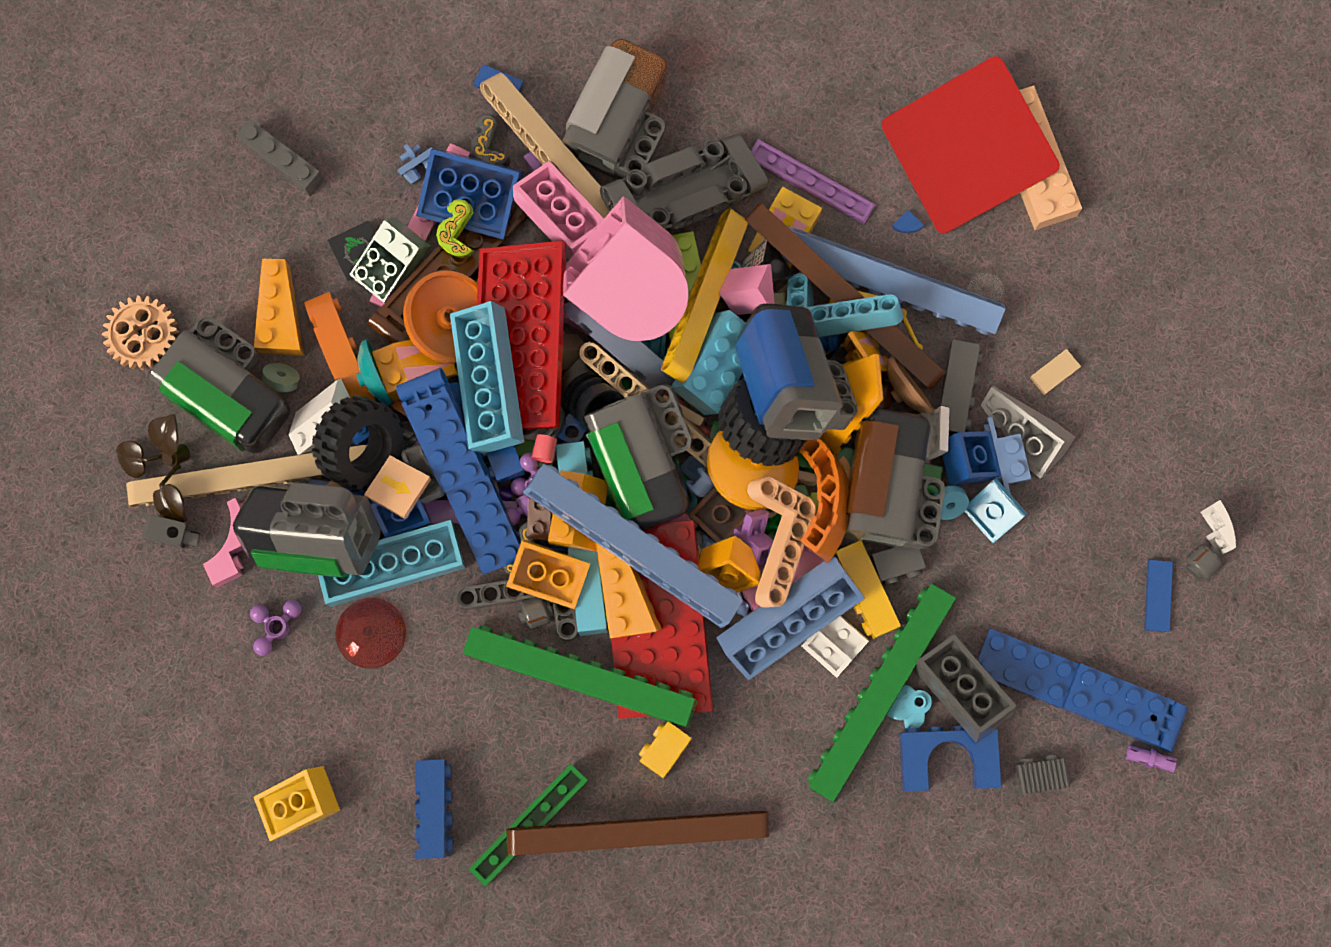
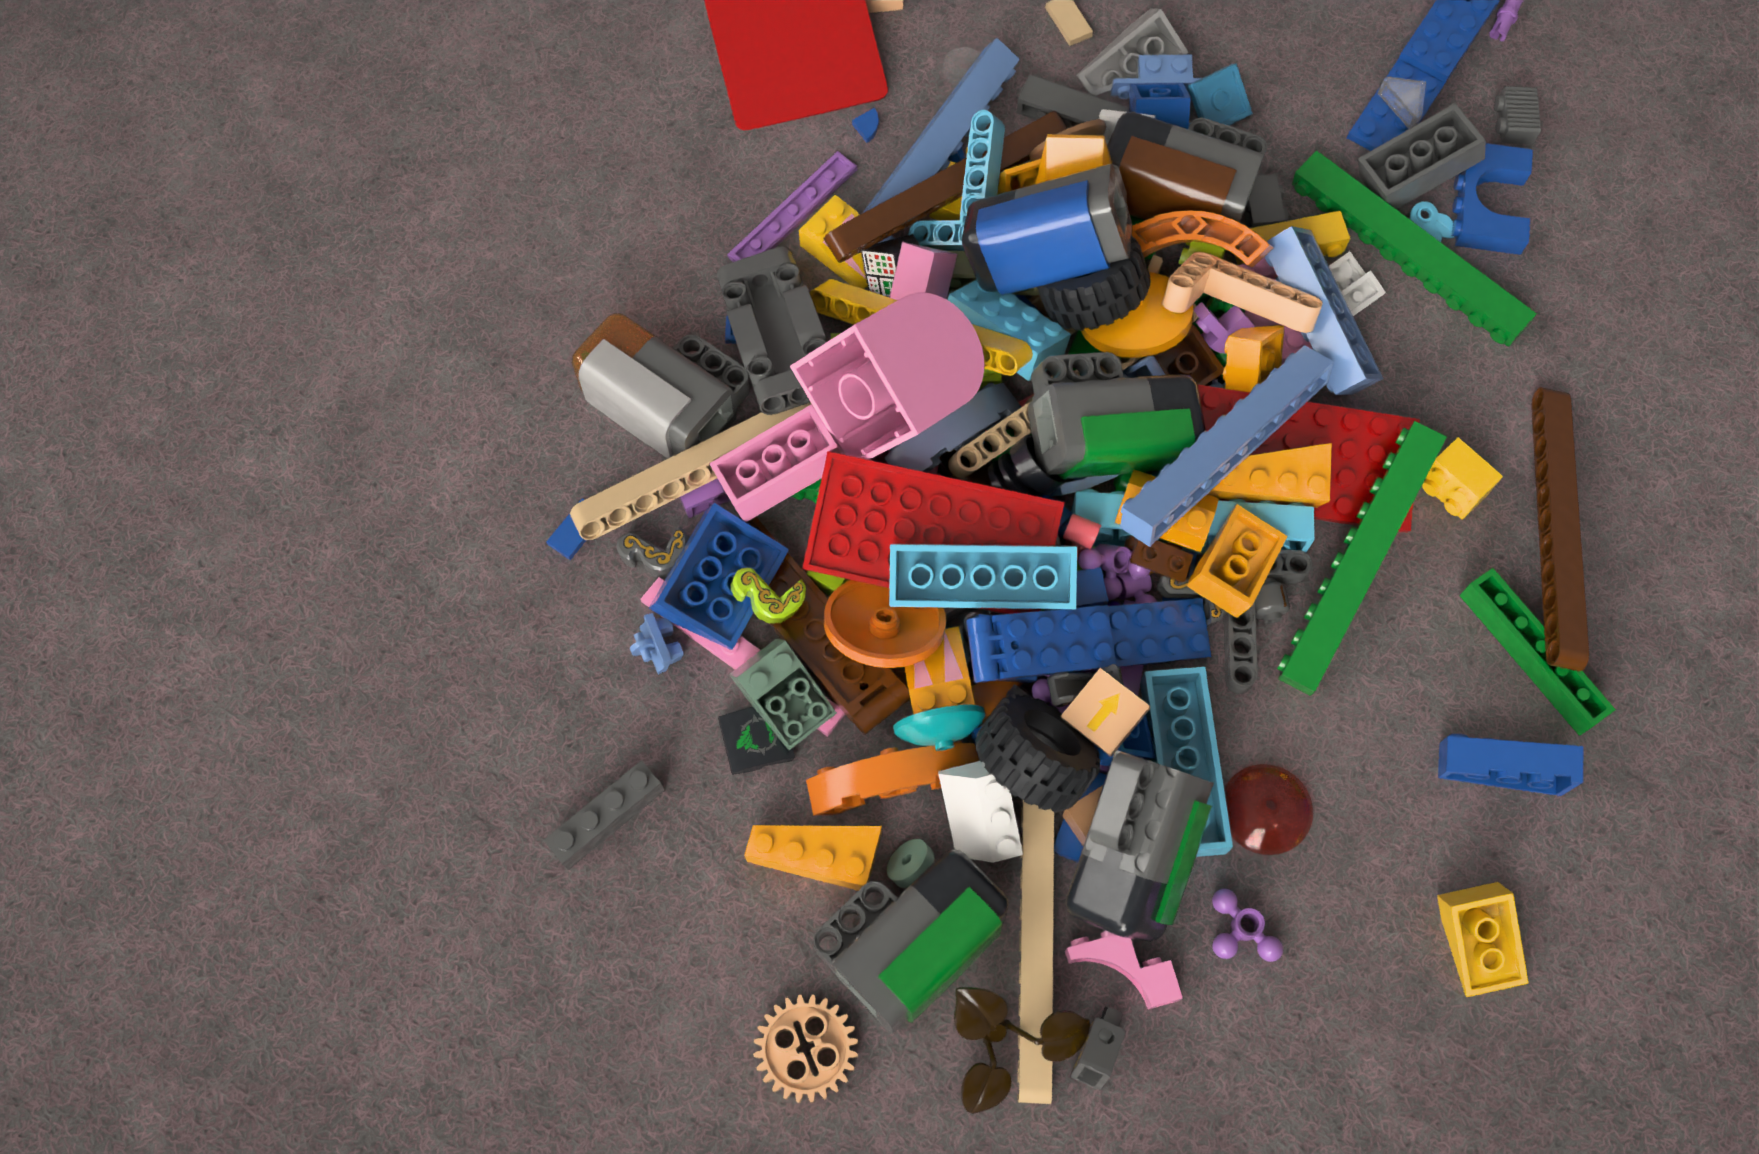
camera: 80 degrees left, 10 degrees down
(1024, 670) = (1404, 98): none -> clear slope

